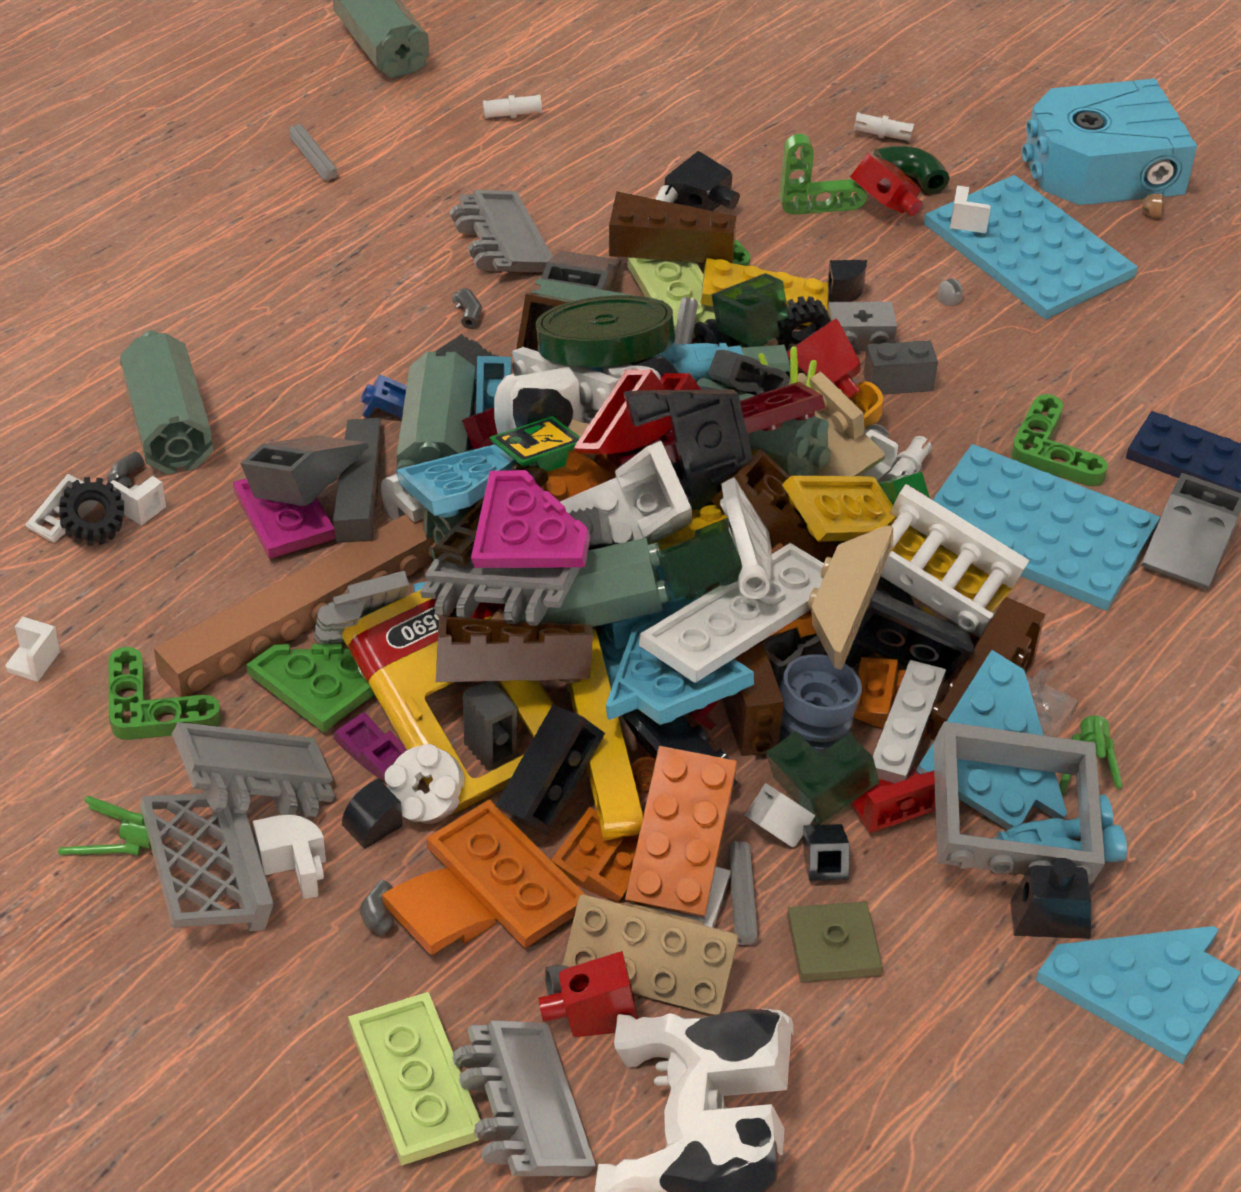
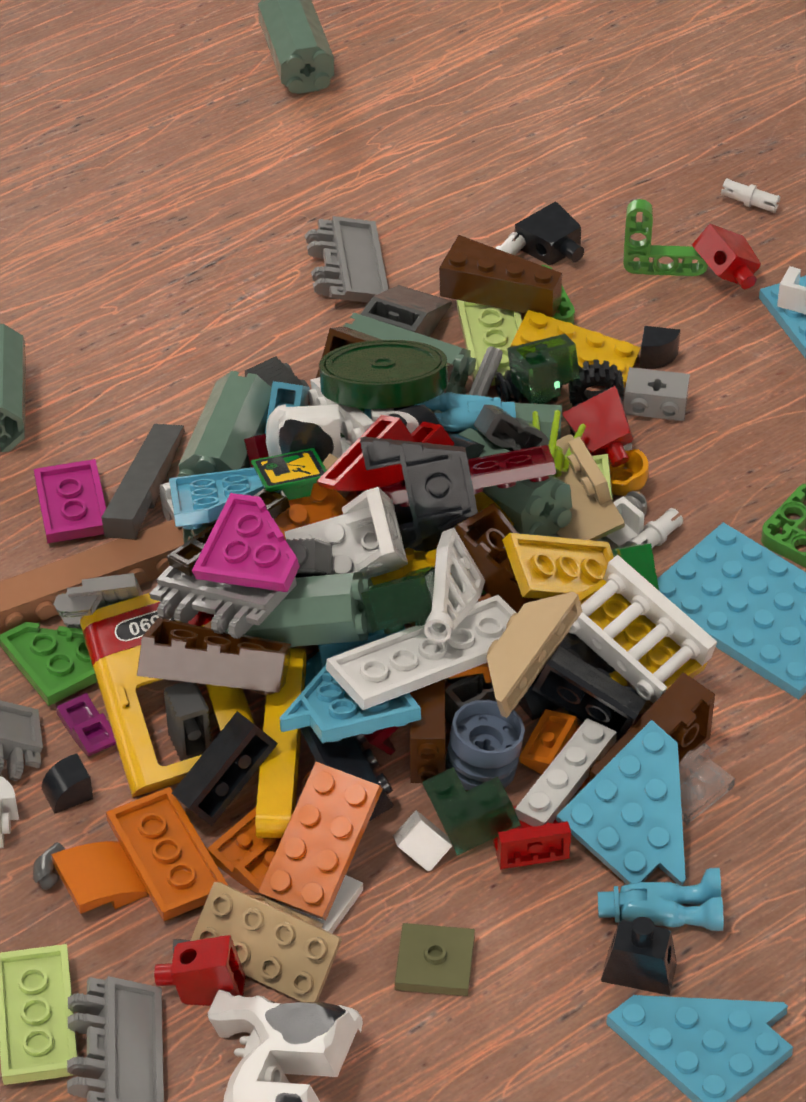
camera: 15 degrees right, 0 degrees up
(299, 467) = (90, 463): dark grey slope -> none
(313, 152) = (199, 161): light grey axle -> none
(384, 394) = (189, 405): blue bracket -> none
(444, 789) = (100, 761): white plate -> none
(472, 306) = (299, 329): dark grey arm -> none
(512, 106) = (398, 135): white pin -> none
(743, 893) = (368, 904): light grey axle -> none
(826, 852) = (452, 879): black brick -> none
(901, 367) = (679, 439): dark grey brick -> none
(918, 165) = (766, 236): dark green cylinder -> none
(950, 292) = (753, 369): light grey hinge -> none
(1023, 751) = (638, 813): light grey window -> none
(1096, 730) = (735, 817): bright green plant -> none

